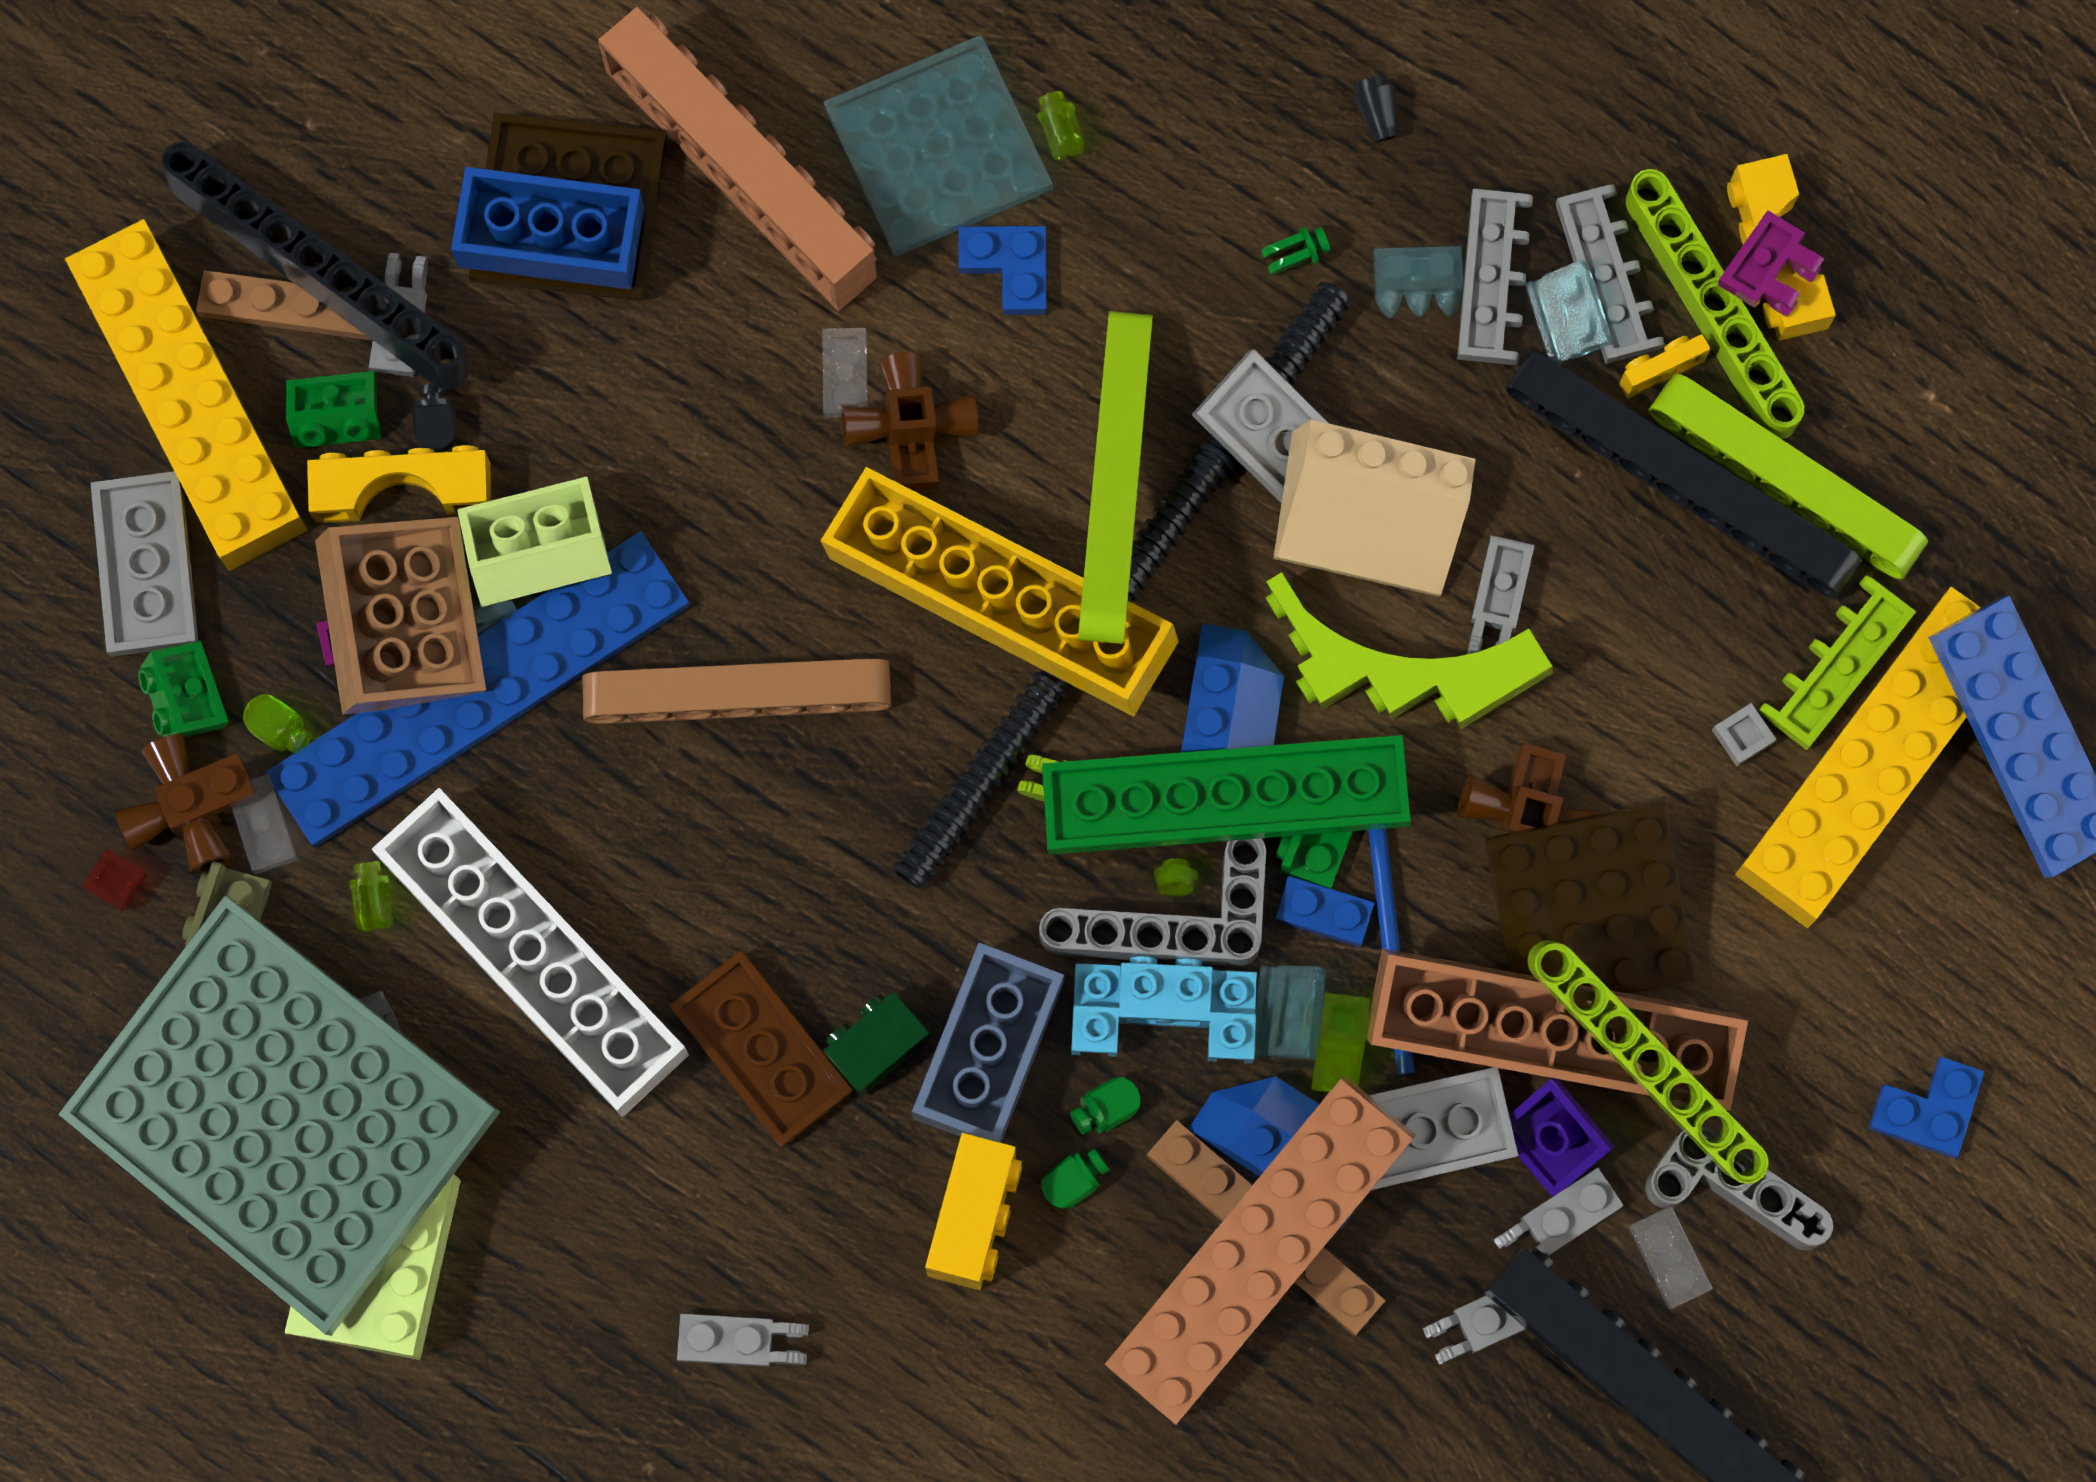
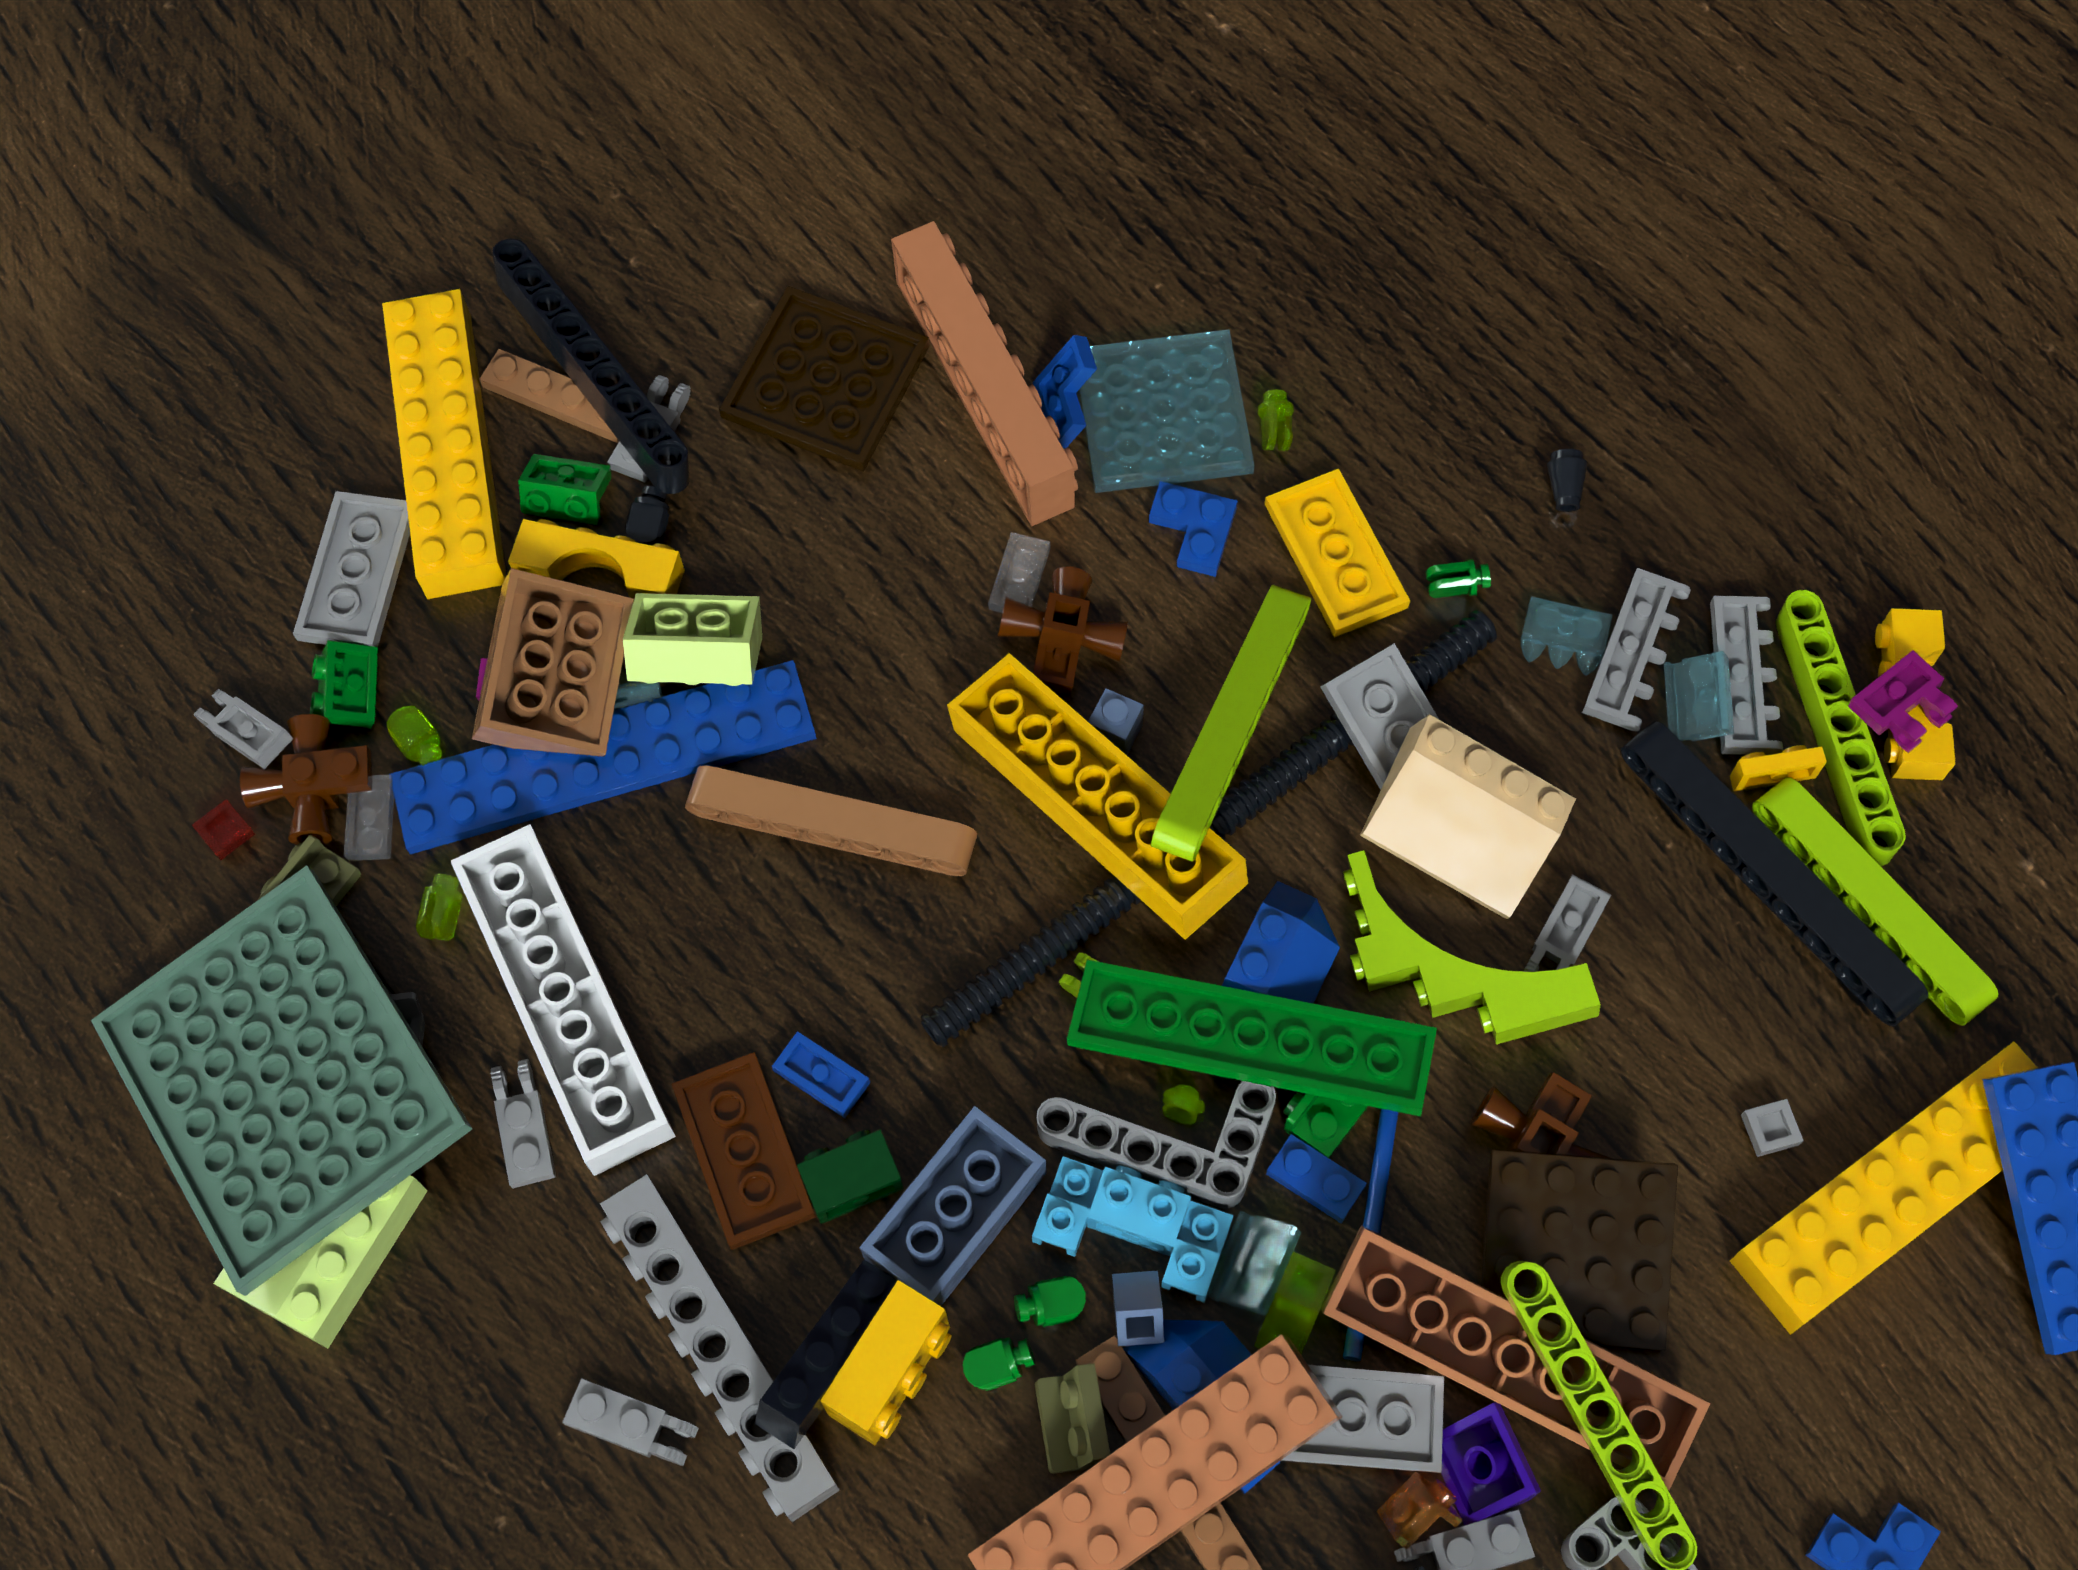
camera: 20 degrees right, 10 degrees down
(98, 770) = (245, 729): none -> light grey hinge
(535, 1093) = (522, 1128): none -> light grey hinge
(548, 228) = (797, 382): blue brick -> none
(684, 1131) = (642, 1205): none -> light grey brick
(812, 952) = (821, 1074): none -> blue plate
(822, 151) = (1060, 383): none -> blue plate
(913, 1220) = (796, 1393): none -> black brick
(994, 505) = (1118, 719): none -> sand blue brick
(1162, 1211) = (1072, 1420): none -> olive bracket
(1163, 255) = (1337, 552): none -> yellow plate
(1192, 1088) = (1138, 1308): none -> sand blue brick
(1504, 1195) = (1416, 1508): none -> clear orange bracket
(1841, 665) = (1884, 1089): lime hinge -> none

